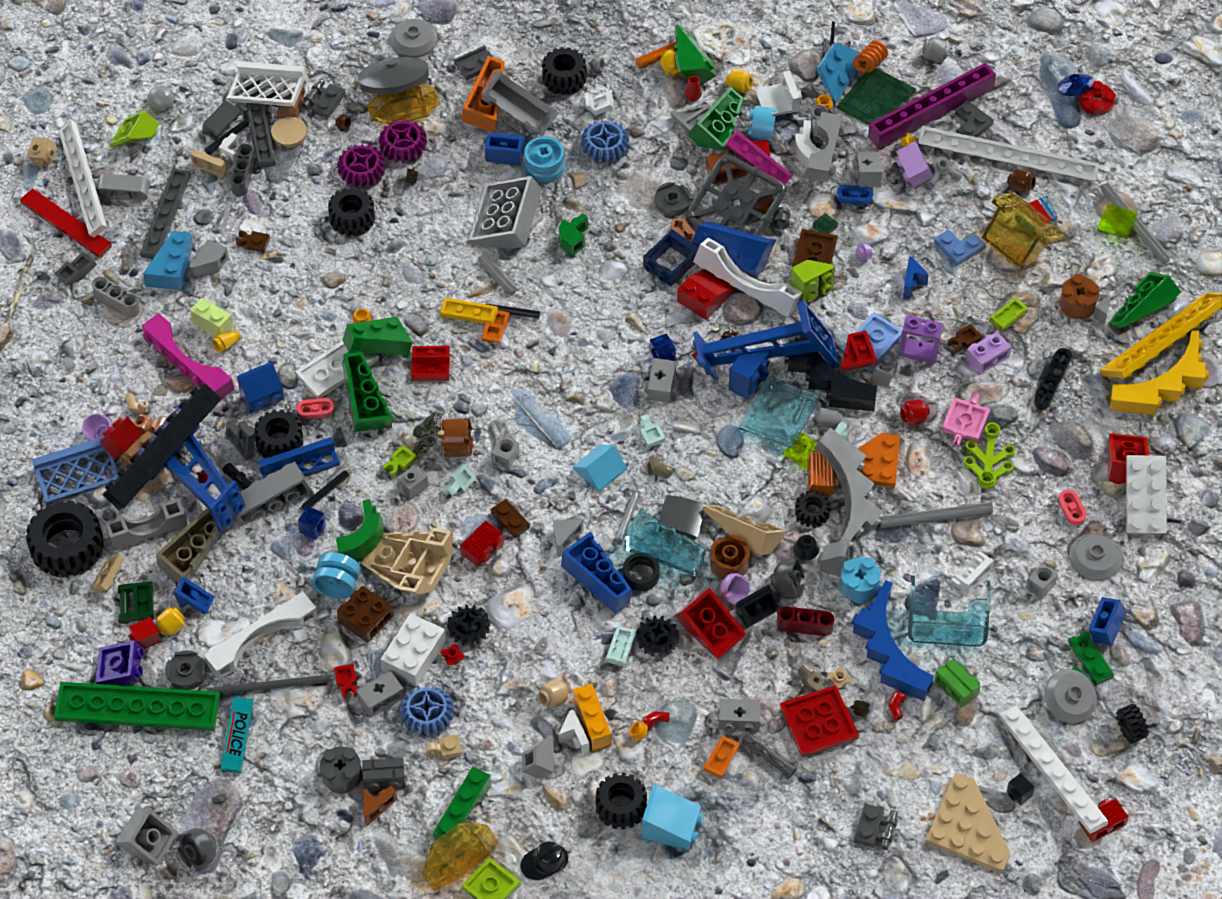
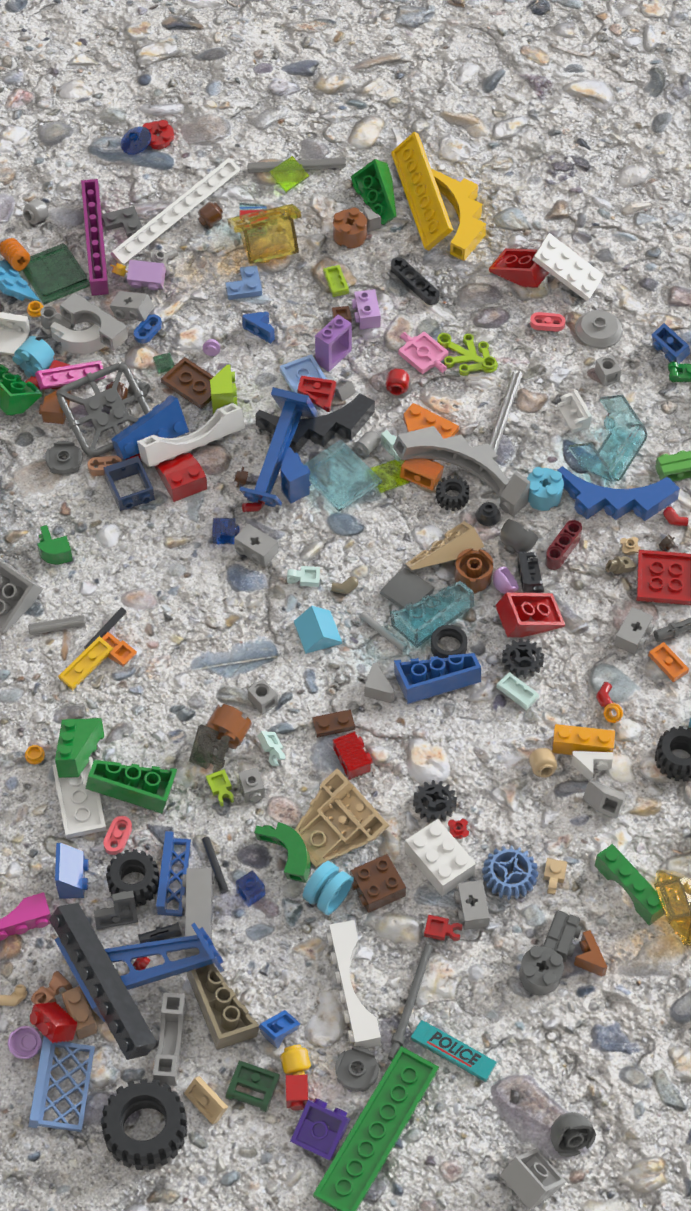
camera: 65 degrees left, 0 degrees up
(430, 363) = (124, 718): red slope -> none

